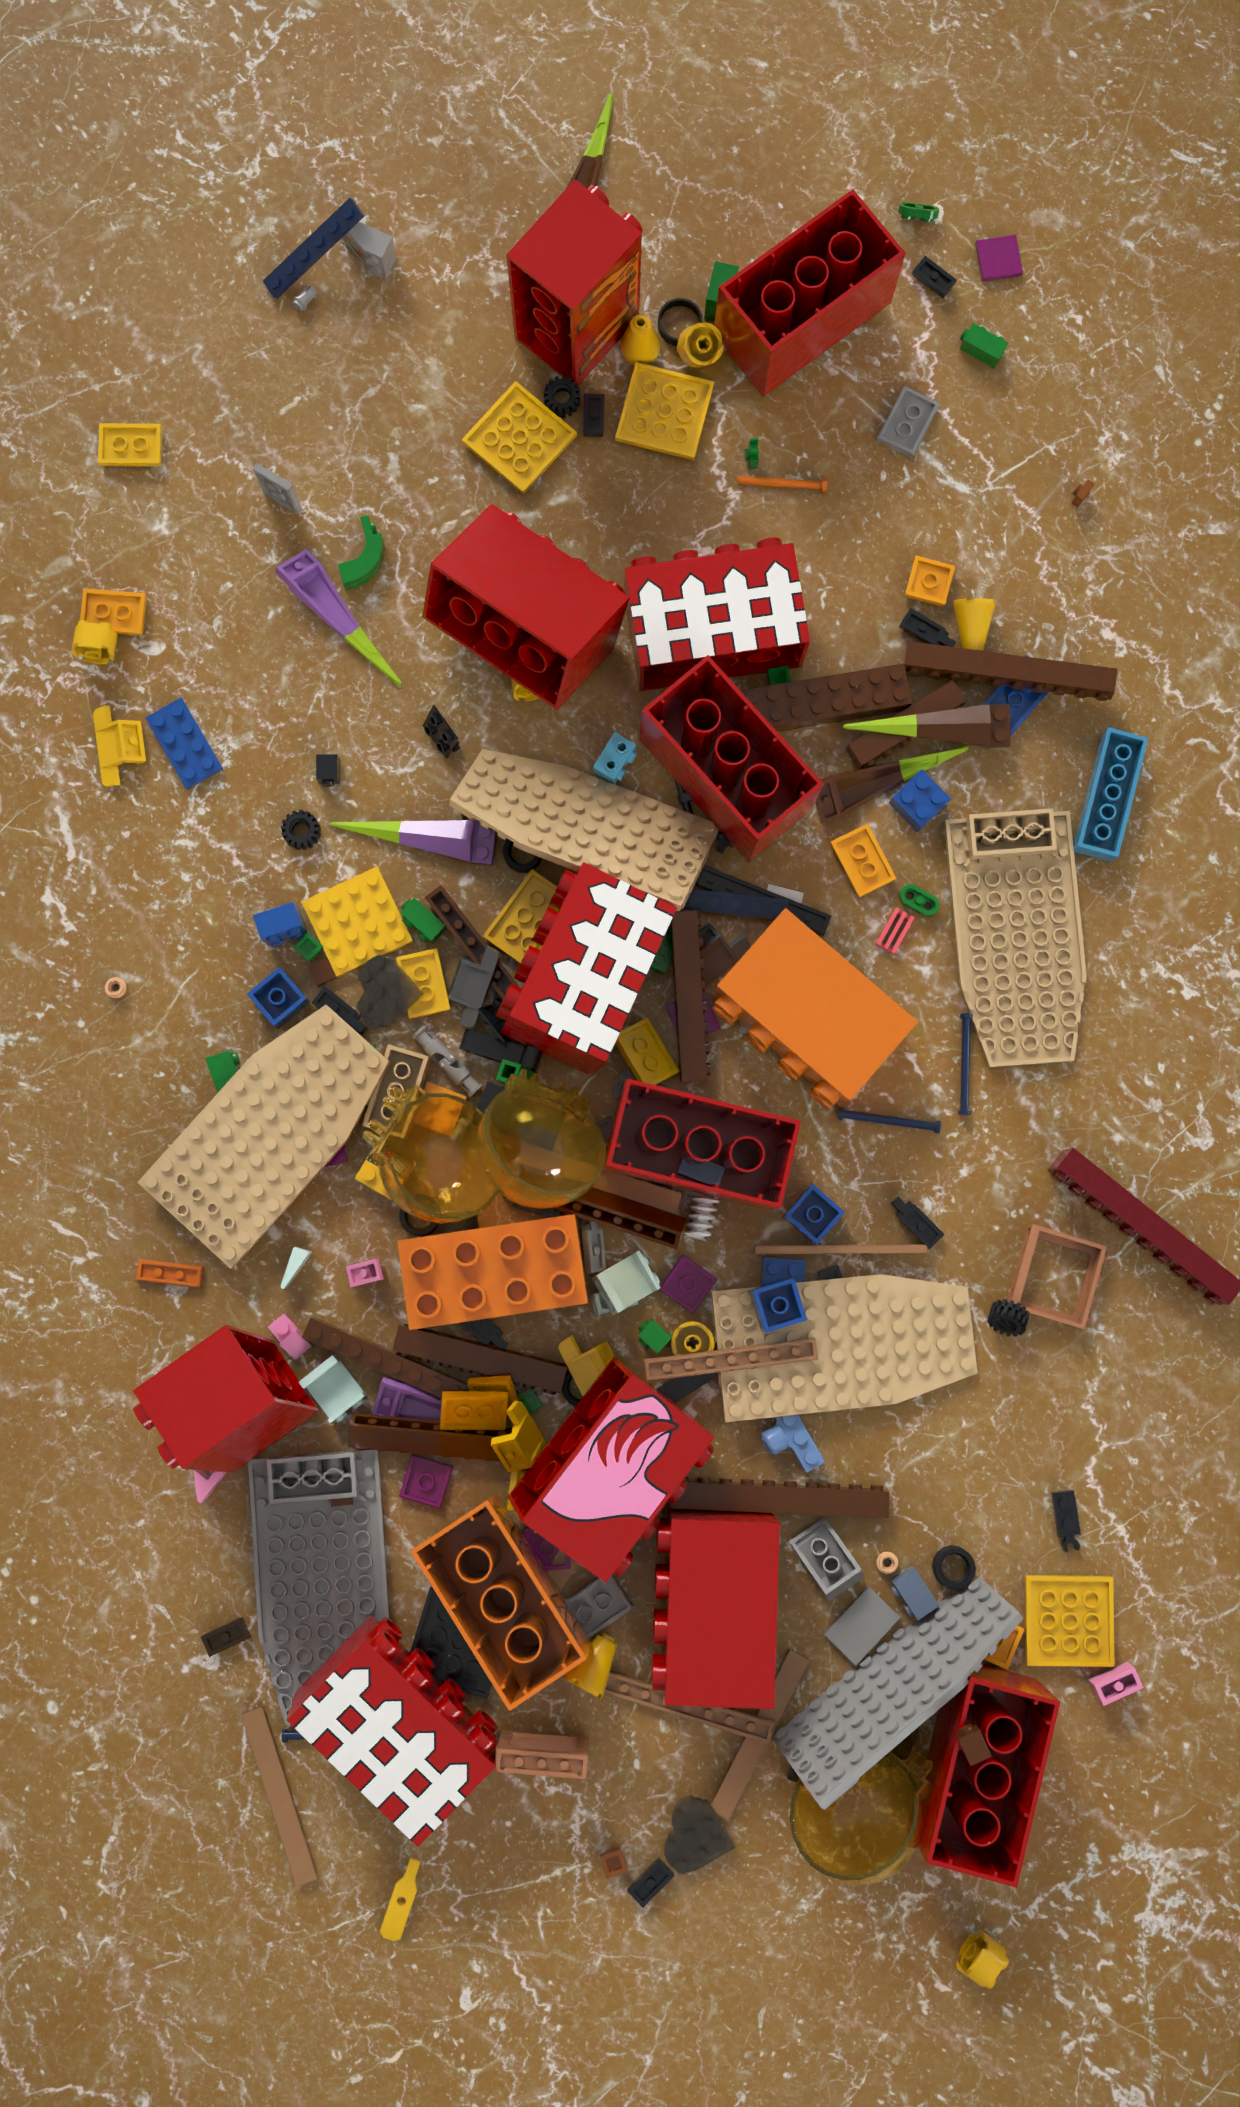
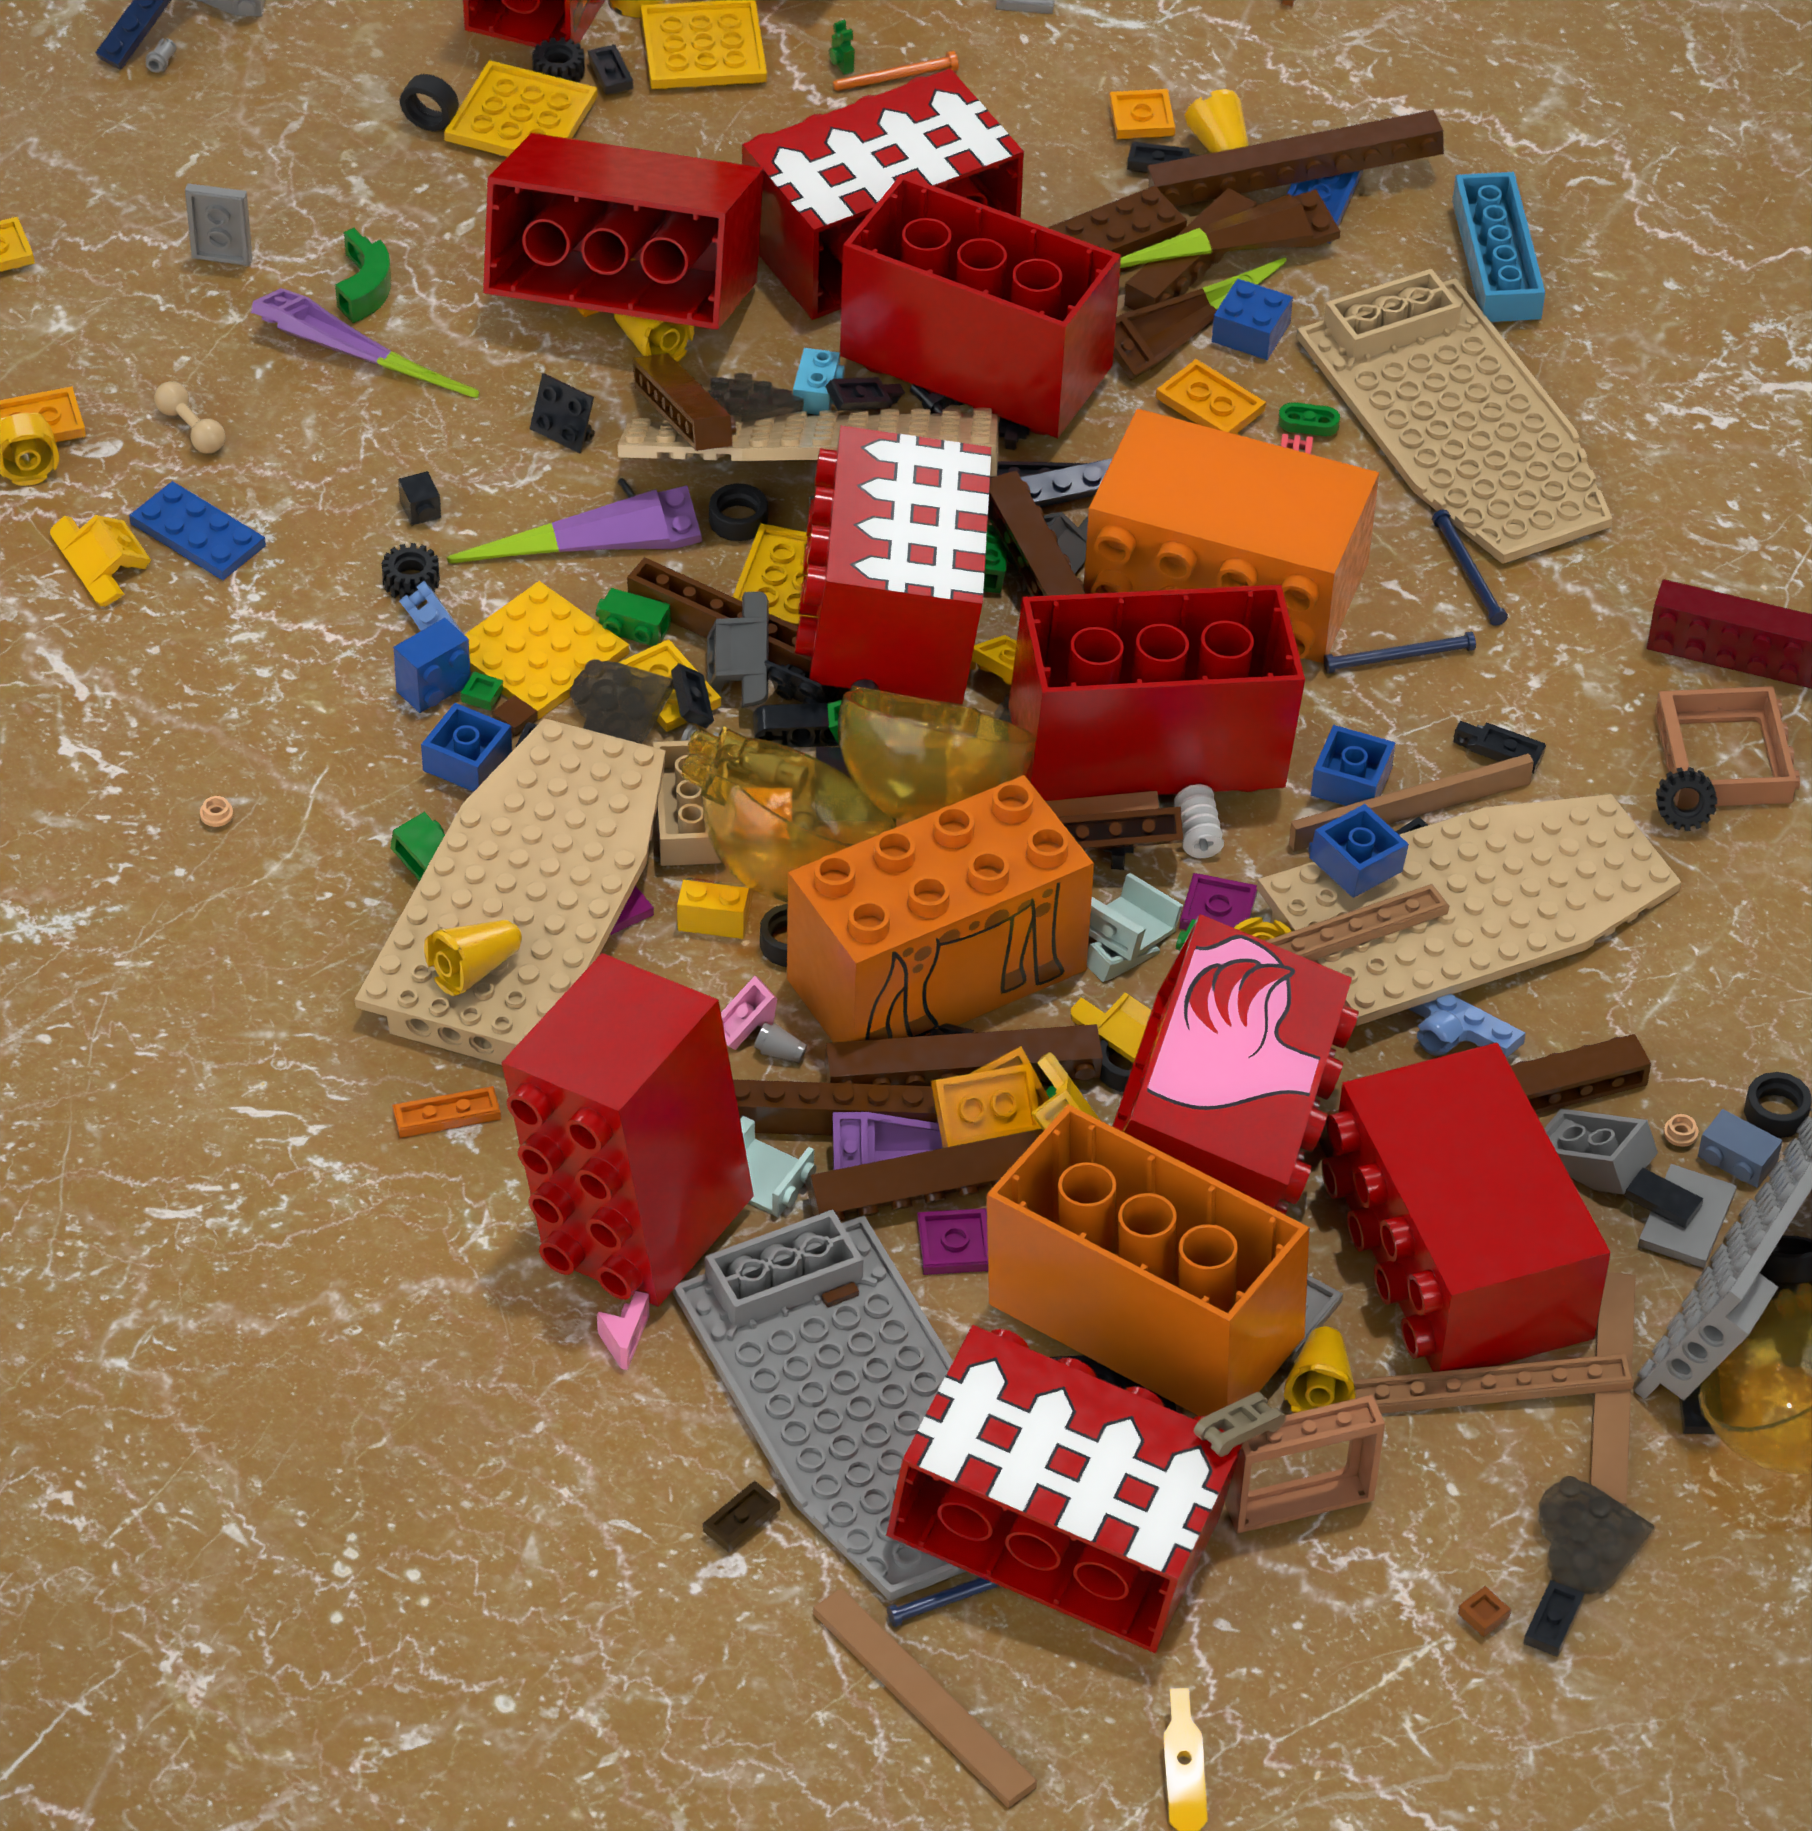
camera: 20 degrees left, 35 degrees down
(204, 627) = (206, 434): none -> tan piece
(209, 1190) = (469, 953): none -> yellow cone
(299, 875) = (431, 612): none -> medium blue plate
(380, 1297) = (779, 1043): none -> light grey cone
(428, 1009) = (692, 696): none -> black plate
(458, 412) = (420, 114): none -> black tyre
(496, 1760) = (1240, 1422): none -> dark tan plate
(508, 771) = (683, 402): none -> reddish brown brick
(562, 762) = (753, 398): none -> clear smoke plate
(638, 783) = (863, 393): none -> black hinge
(851, 1614) = (1663, 1197): none -> black tile

